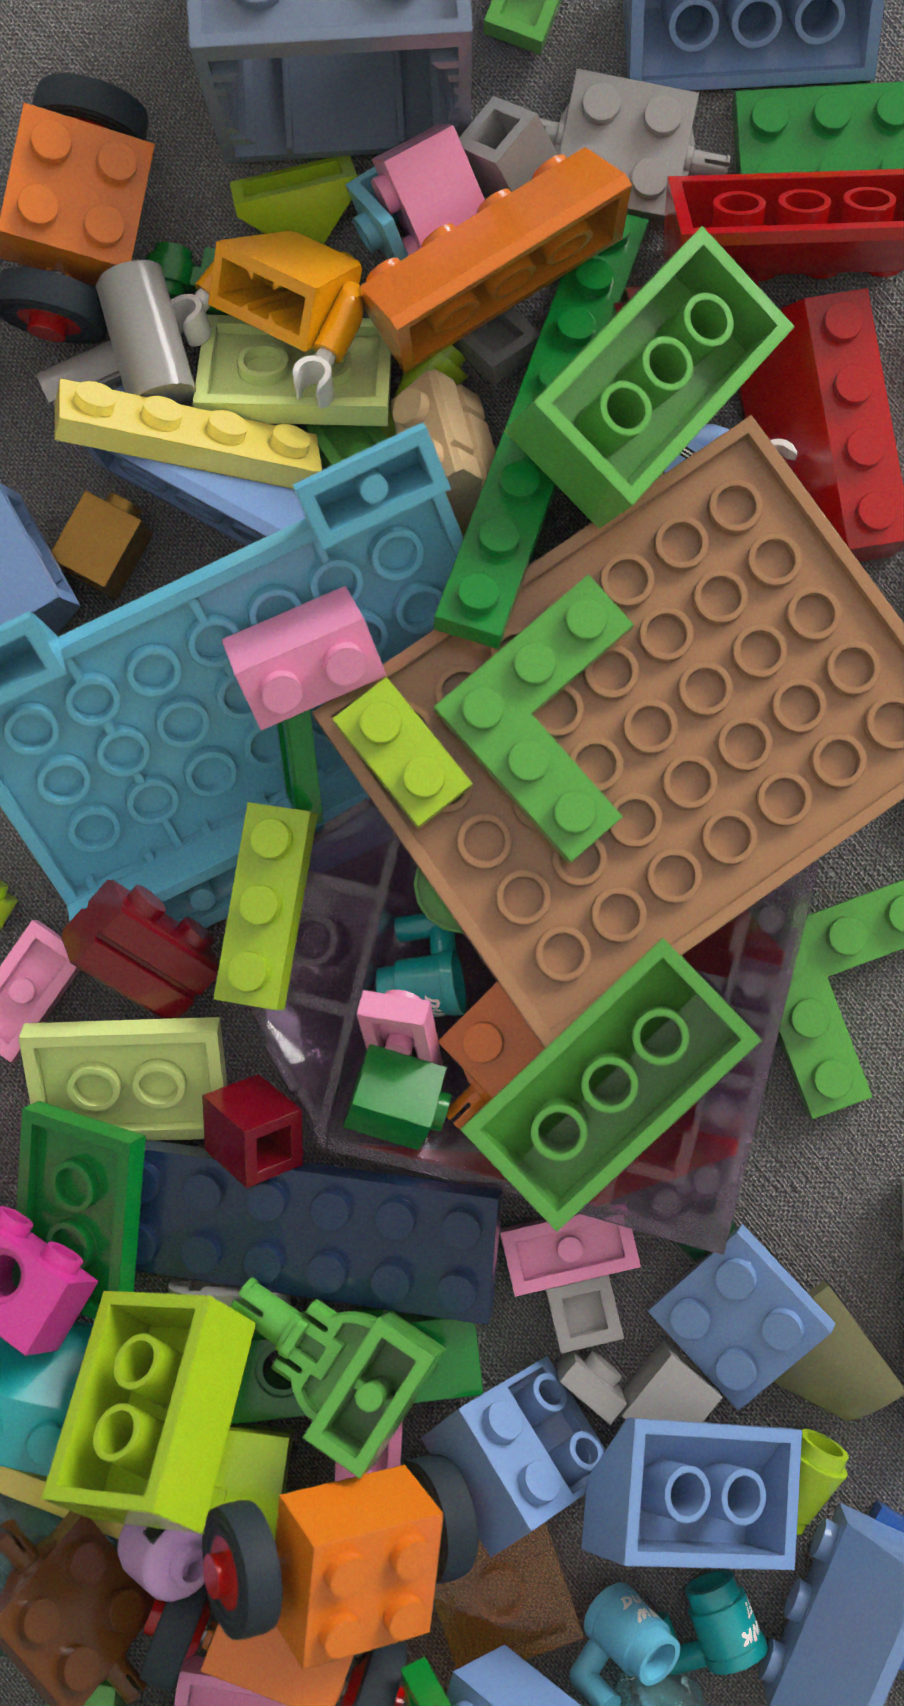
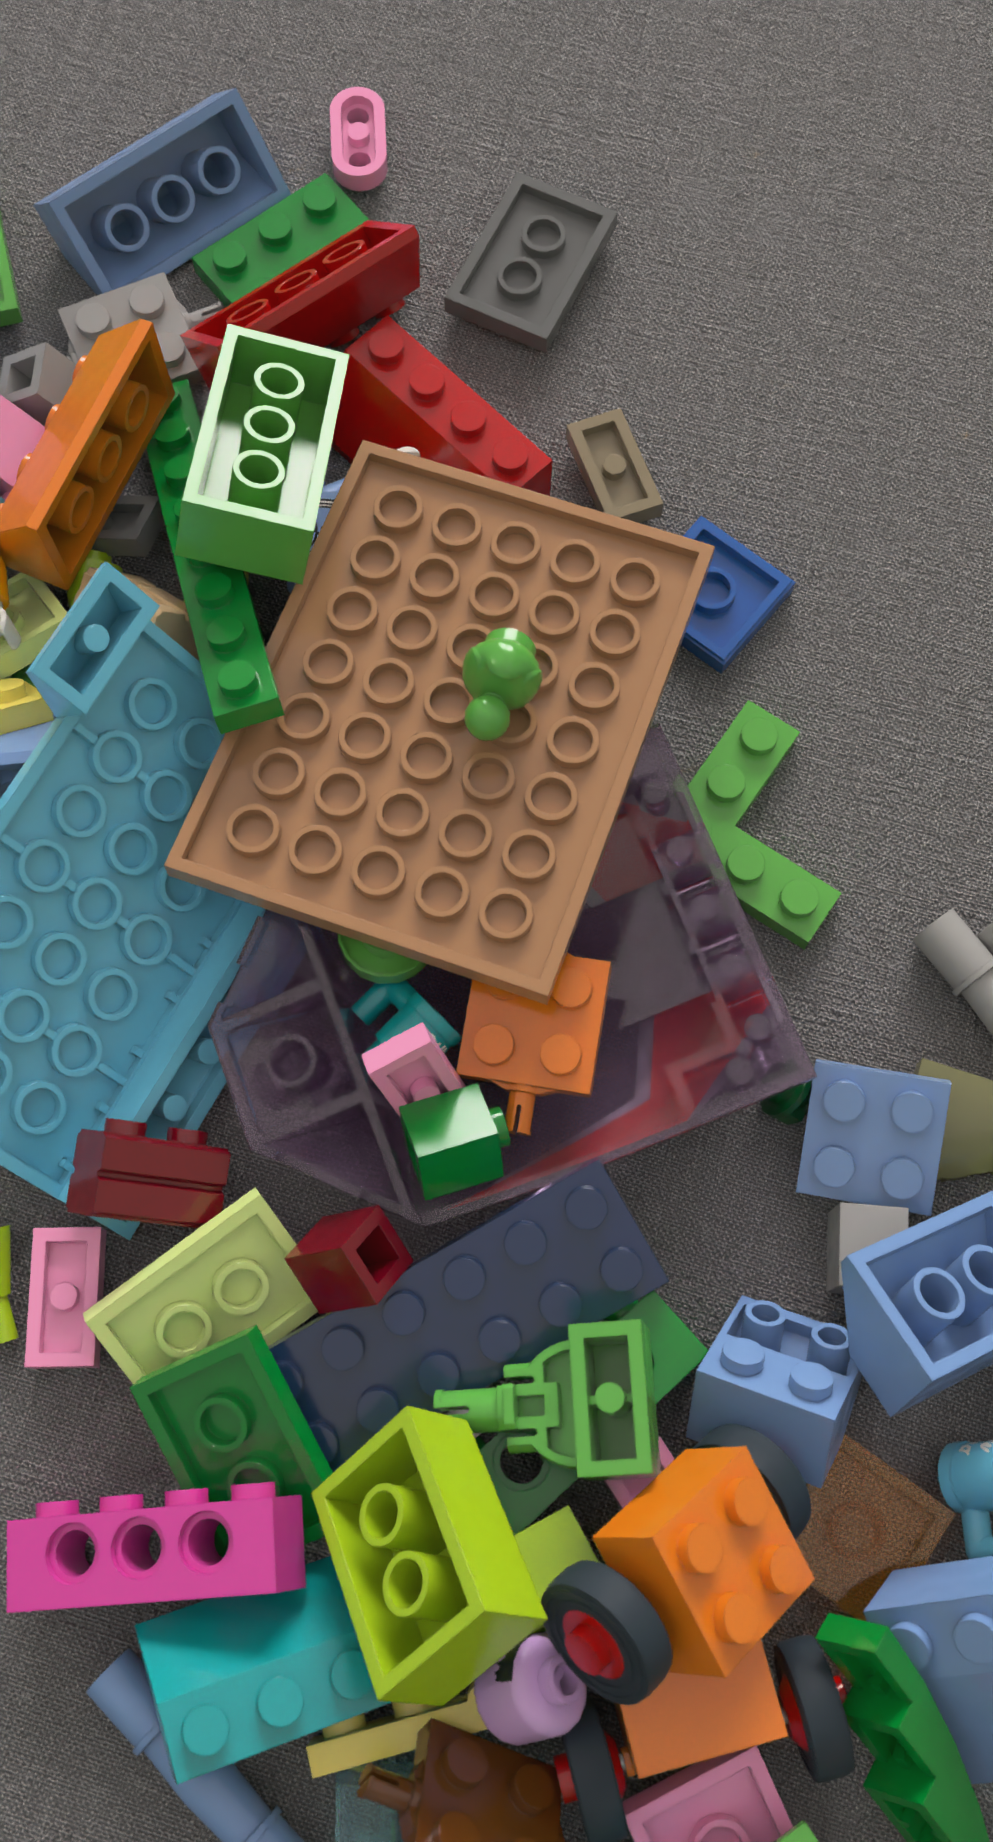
camera: 40 degrees left, 15 degrees down
(265, 906) = (232, 1060): lime plate -> none
(300, 764) = (175, 920): green tile -> none
(303, 657) = (127, 826): bright pink brick -> none
(402, 753) = (261, 844): lime plate -> none
(497, 725) = (324, 773): bright green plate -> none
(577, 1252) = (692, 1185): bright pink plate -> none
(584, 1314) = (744, 1230): light grey plate -> none
(592, 1382) = (795, 1282): light grey plate -> none
(610, 1084) = (618, 989): bright green slope -> none
(703, 743) = (500, 678): none -> bright green animal

